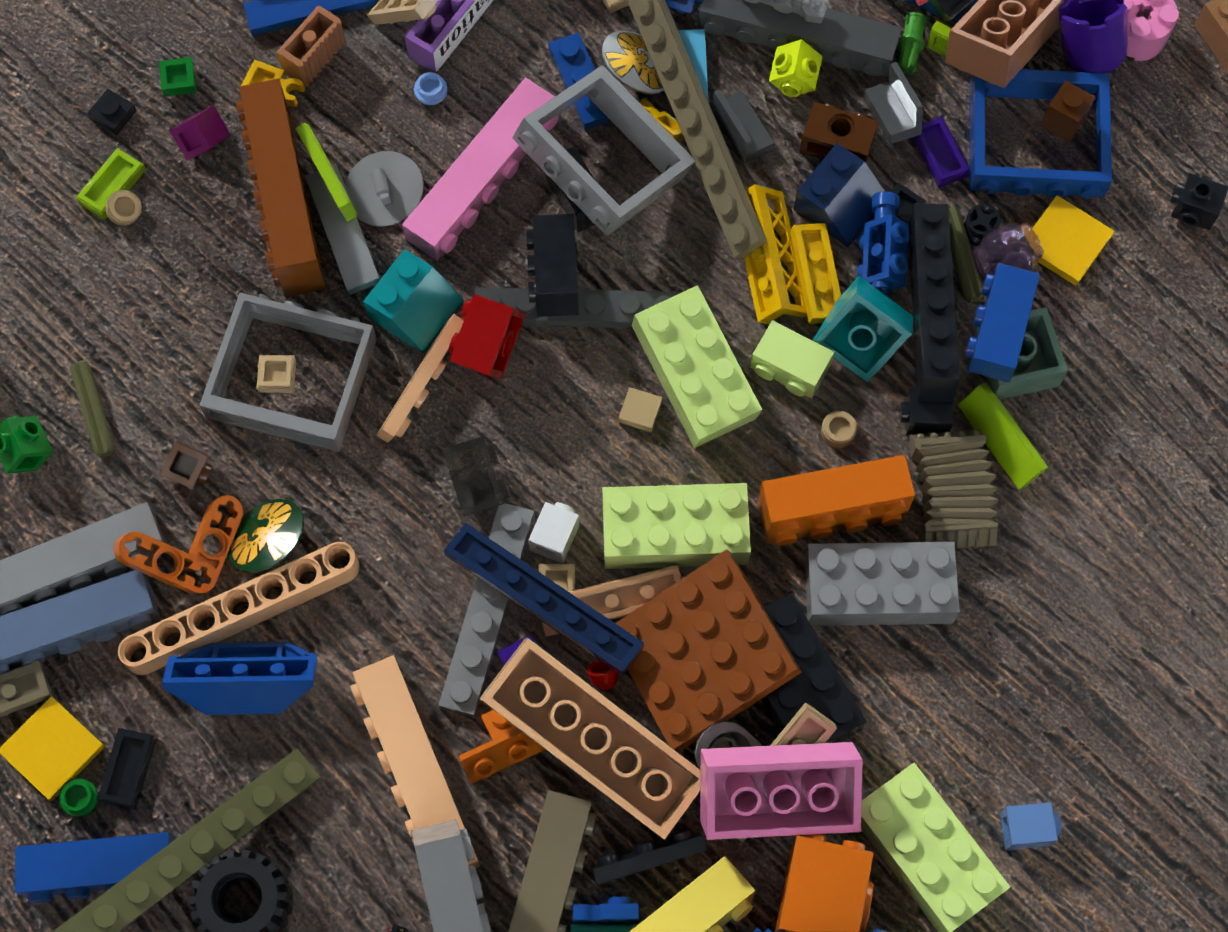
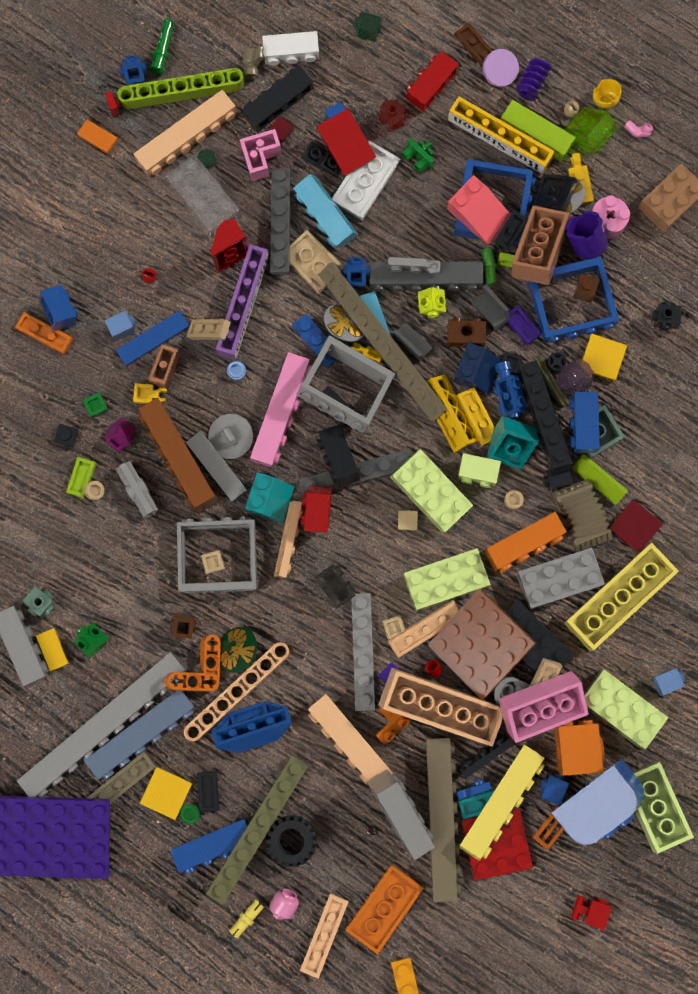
camera: 15 degrees left, 10 degrees up
(92, 409) = (119, 607): olive axle -> none
(195, 226) = (137, 489): none -> light grey piece
(327, 171) = (202, 442): lime tile -> none
(544, 599) = (392, 641): dark blue plate -> none
(554, 531) = (385, 601): white brick -> none
(982, 646) = (621, 597): none -> light yellow brick
(1045, 536) = (635, 526): none -> dark red tile

